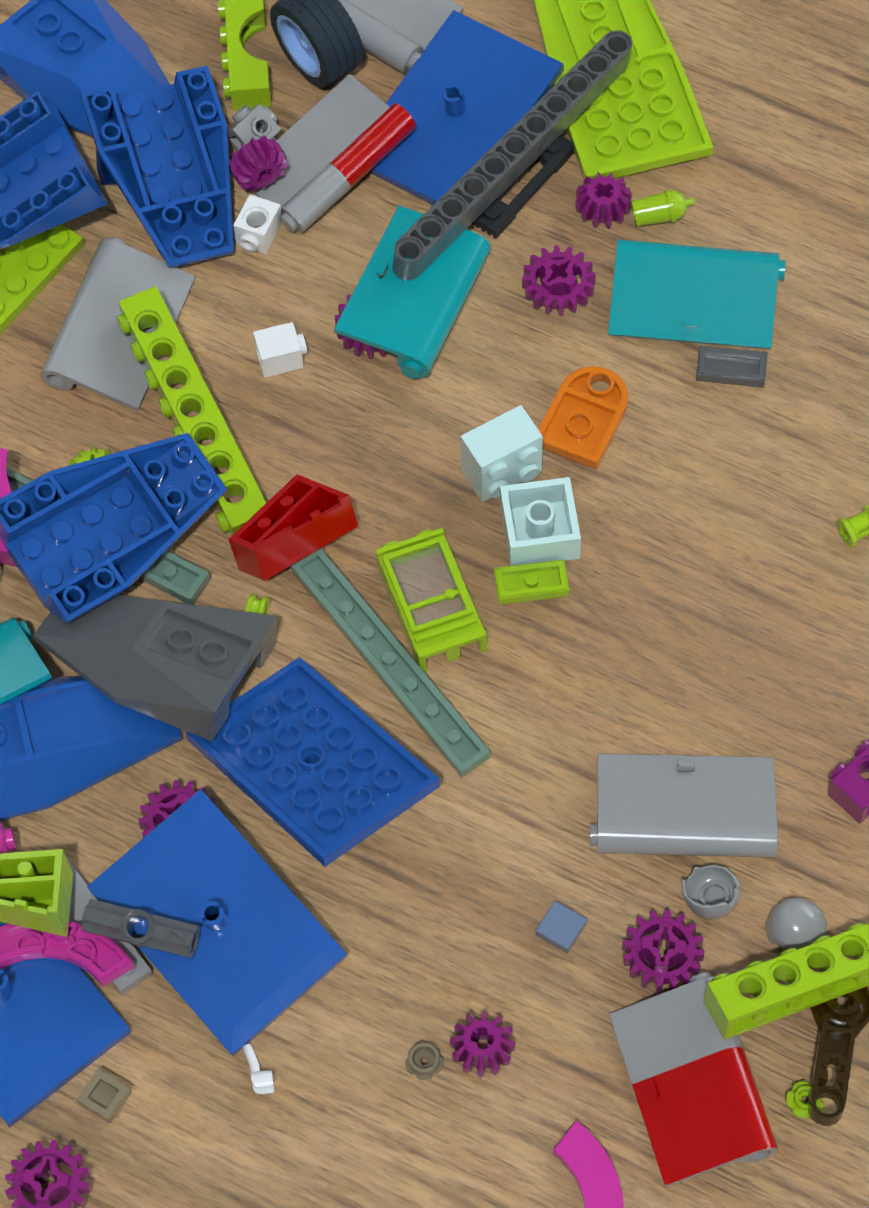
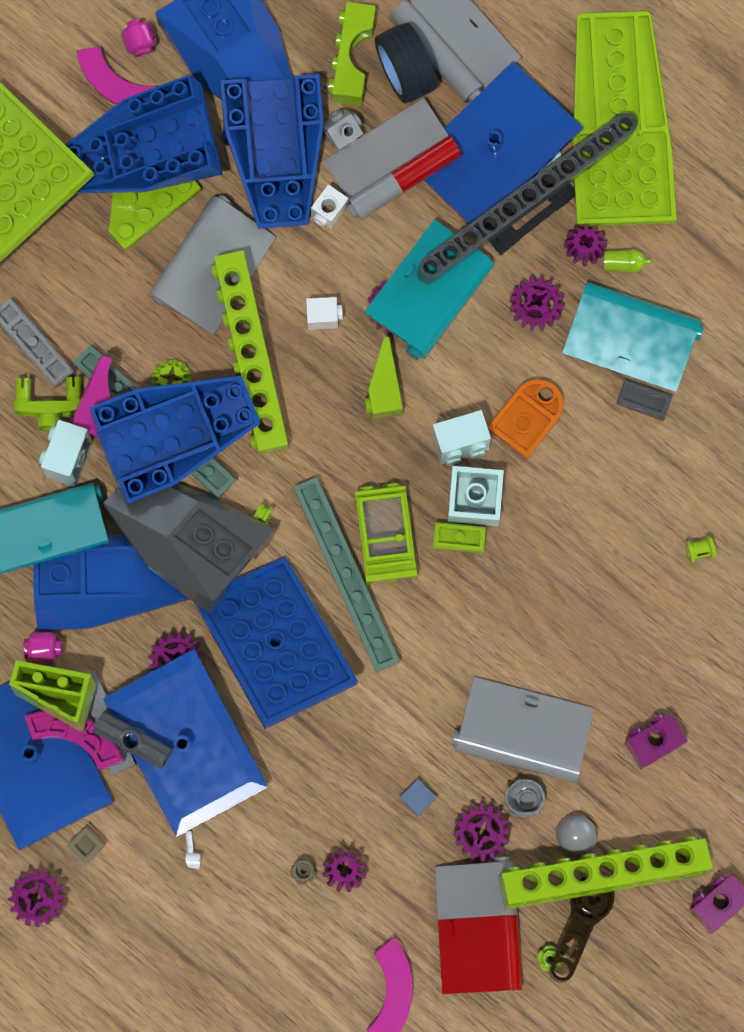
camera: 10 degrees right, 15 degrees up
(258, 163) = (339, 160): magenta gear -> none
(291, 527) = (299, 461): red wedge -> none
(384, 424) = (384, 392): none -> lime slope

